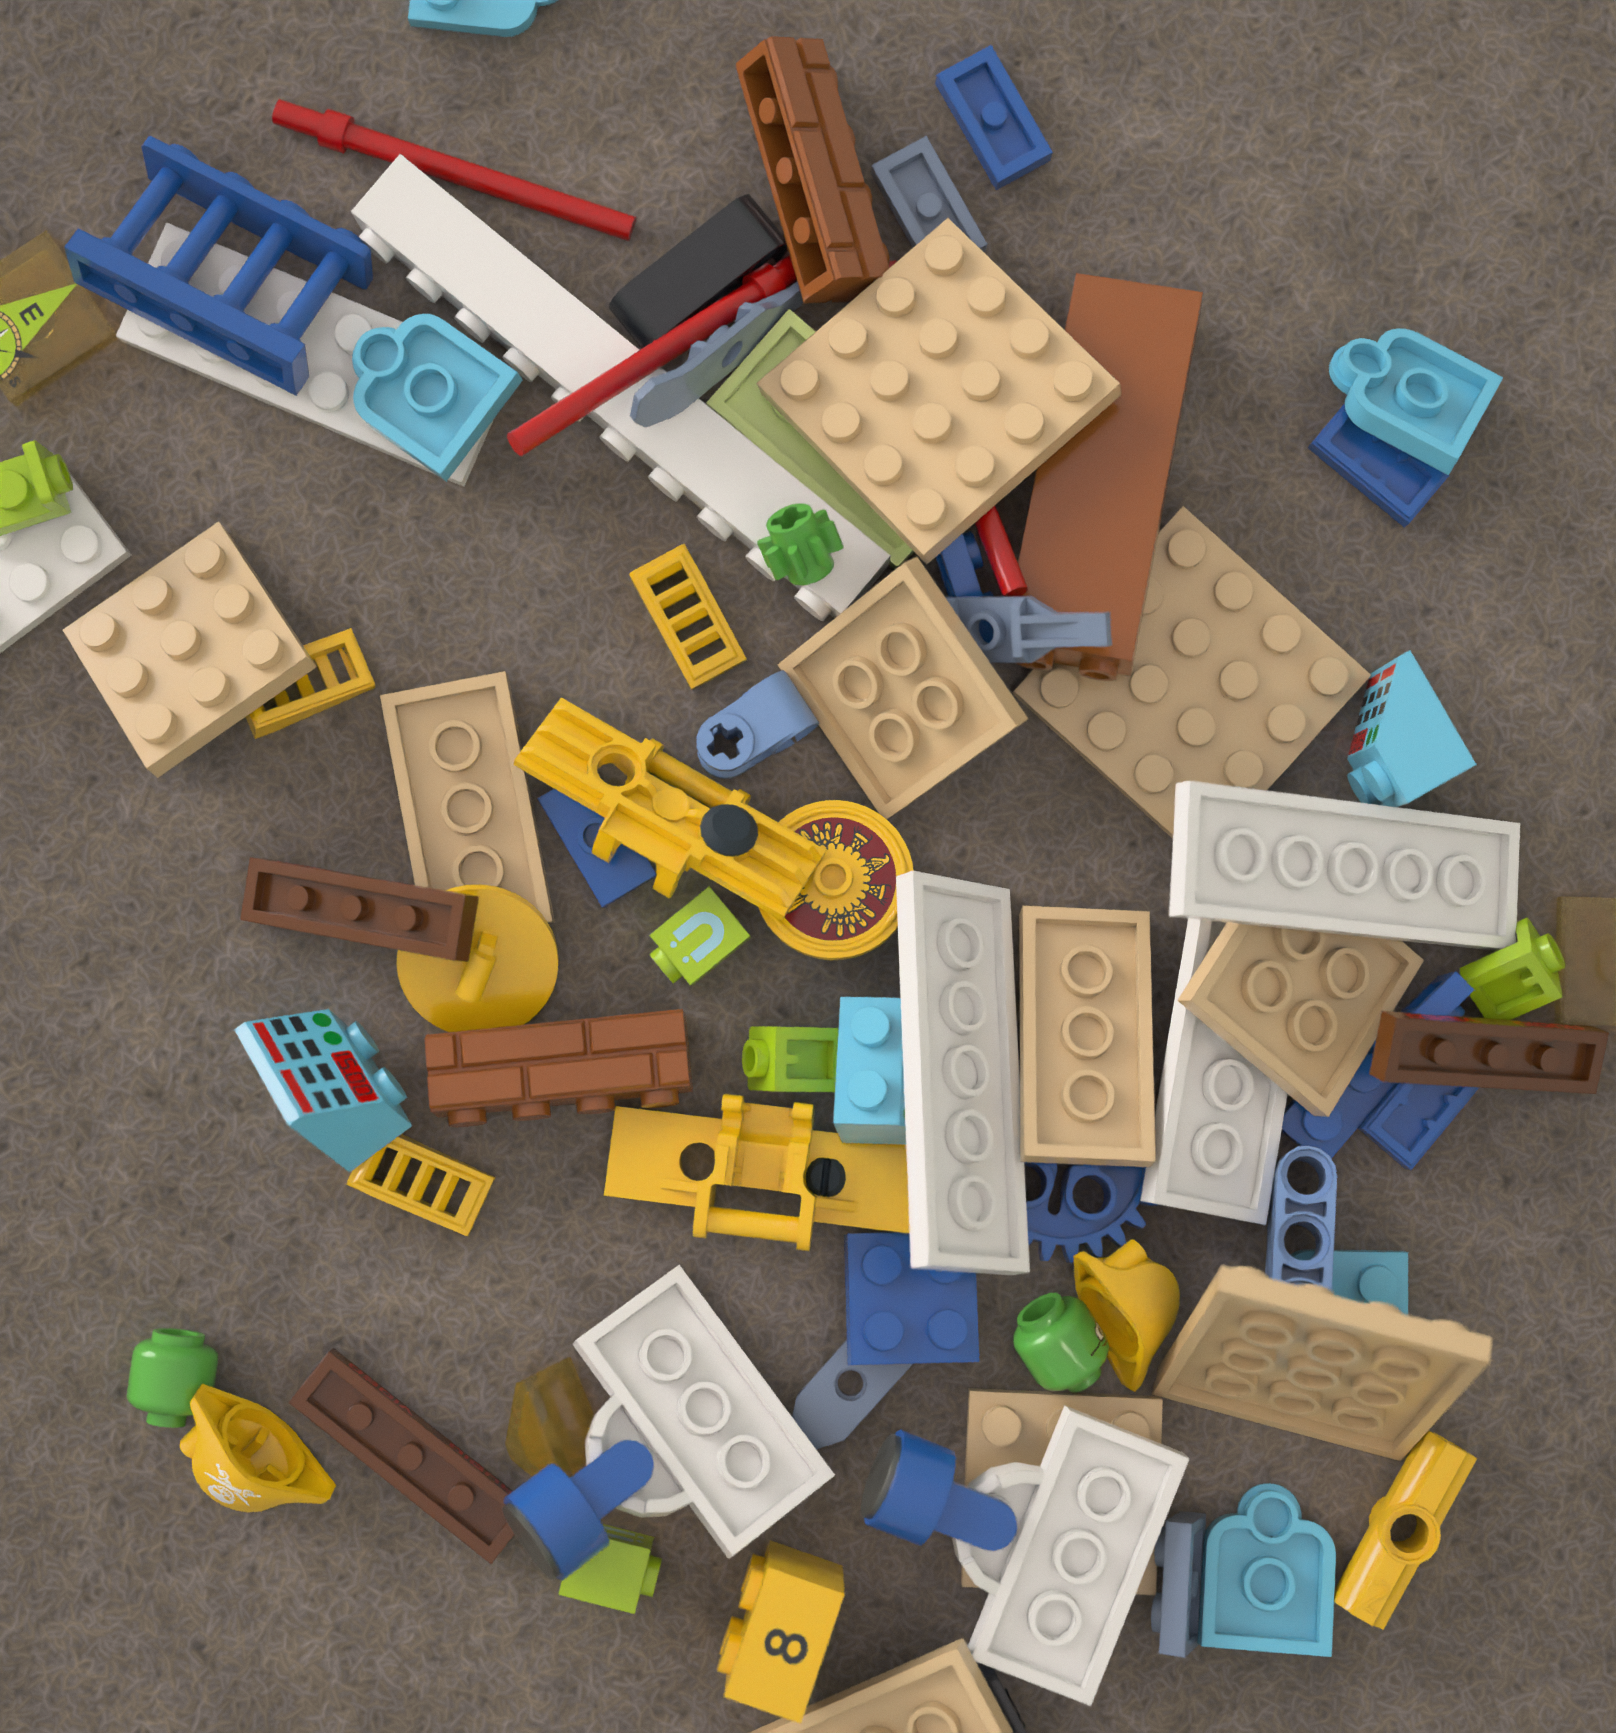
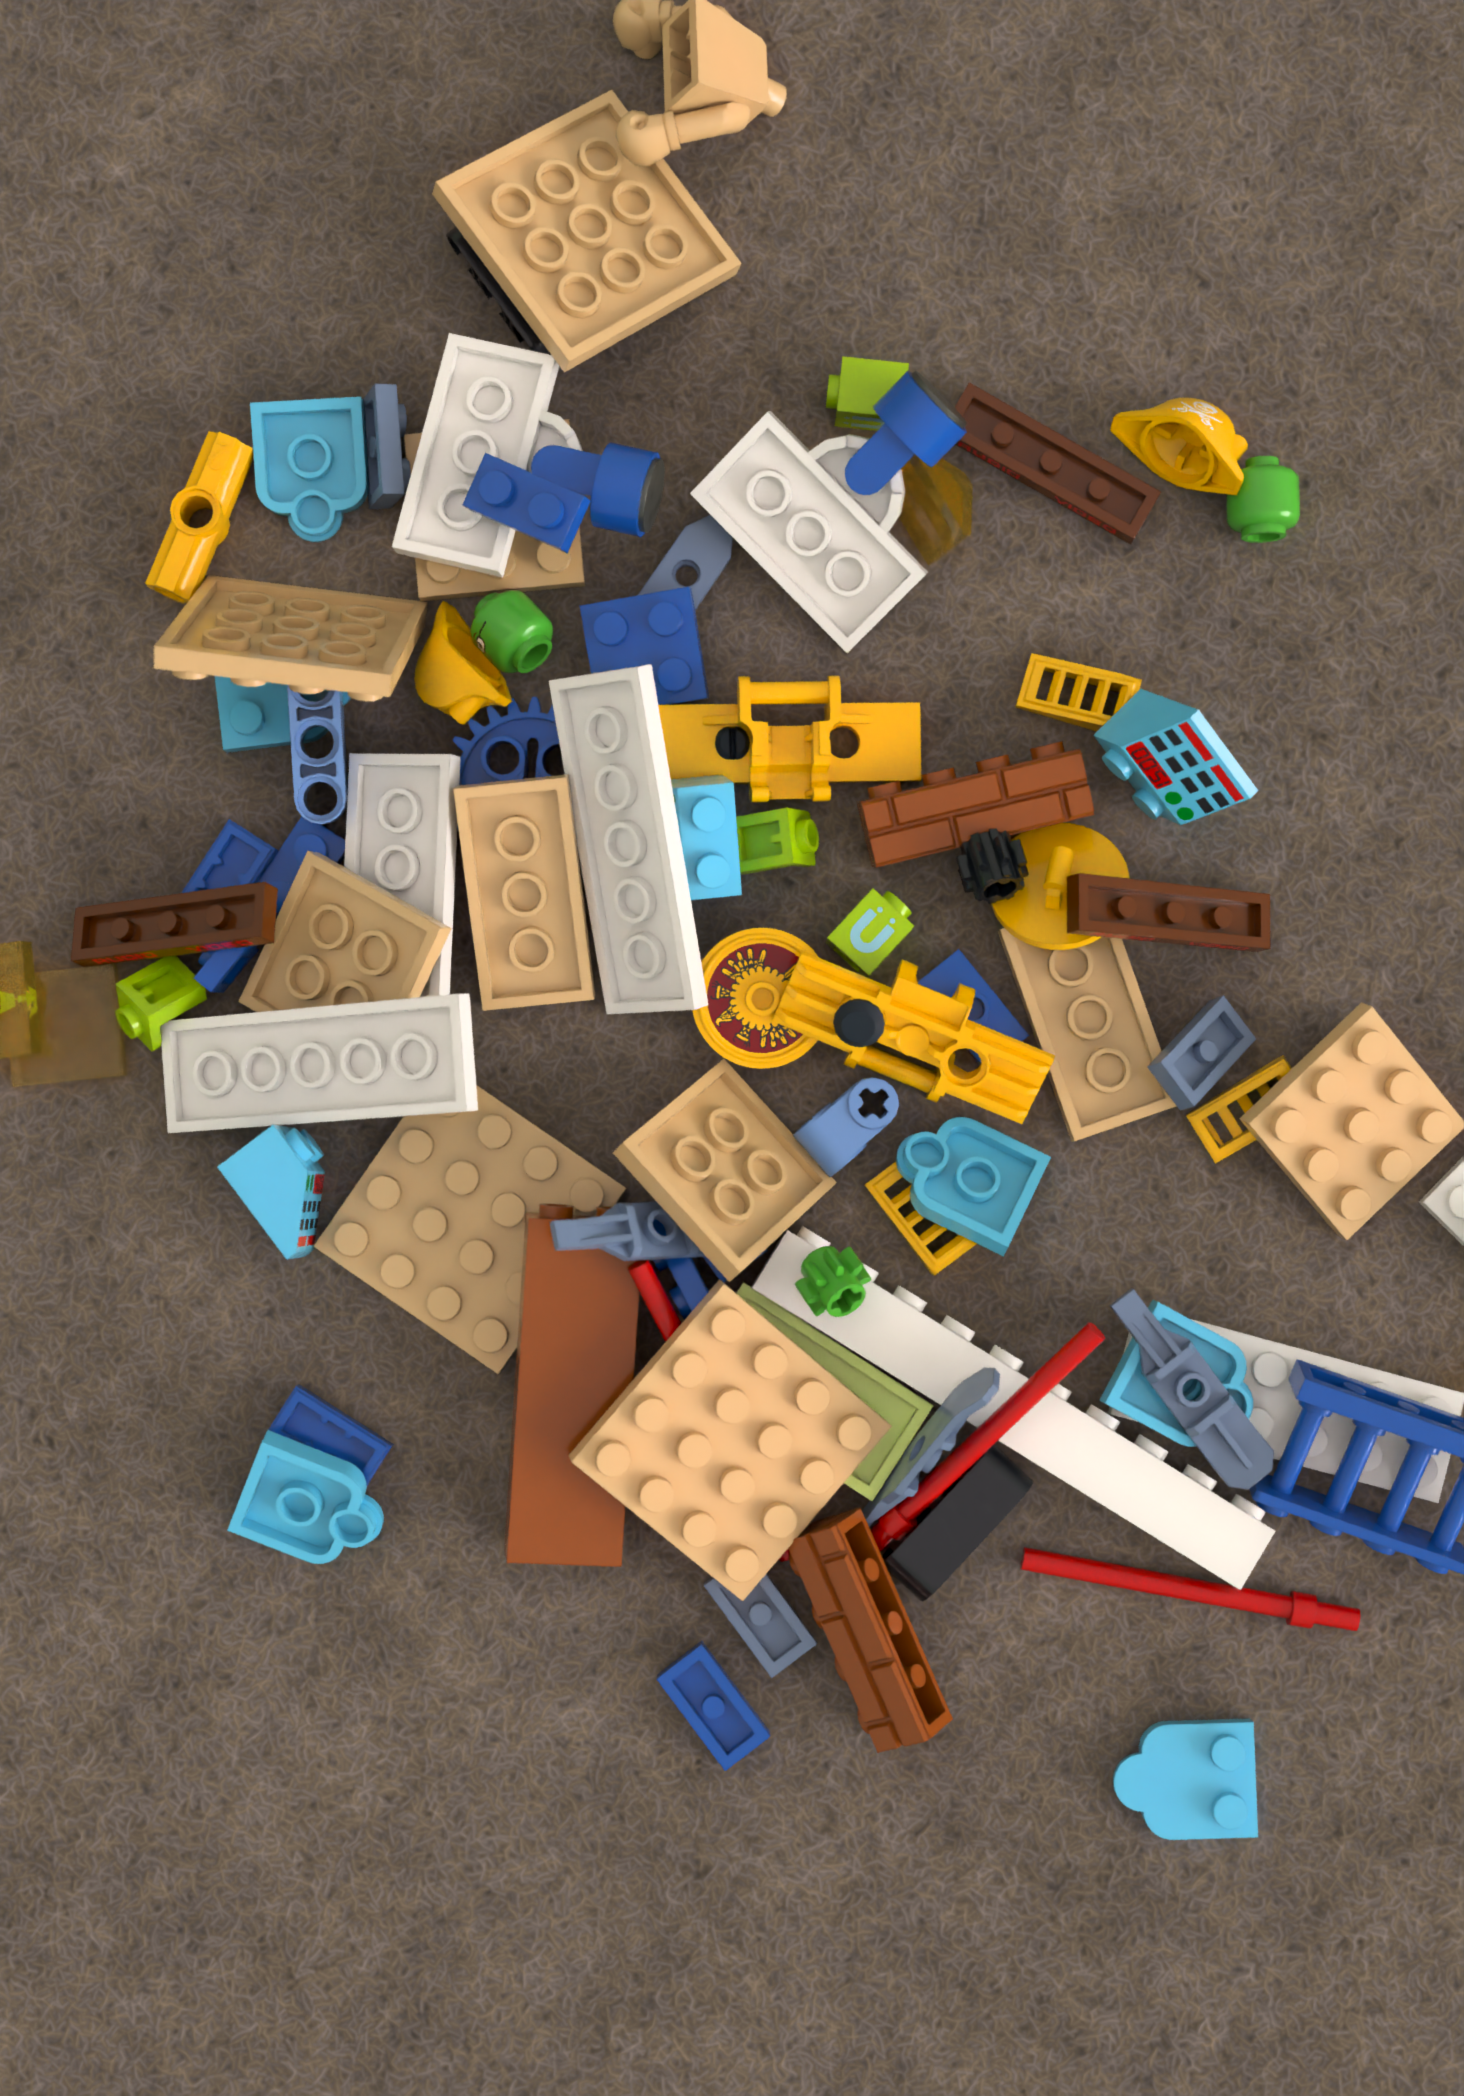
camera: 170 degrees right, 0 degrees up
(346, 748) = (1201, 1053): none -> sand blue plate
(398, 340) = (1213, 1418): none -> sand blue piece
(550, 990) = (992, 866): none -> black gear
(626, 643) = (971, 1180): none -> medium azure plate
(785, 1630) = (714, 358): yellow brick -> none
(1028, 1484) = (526, 502): none -> blue plate

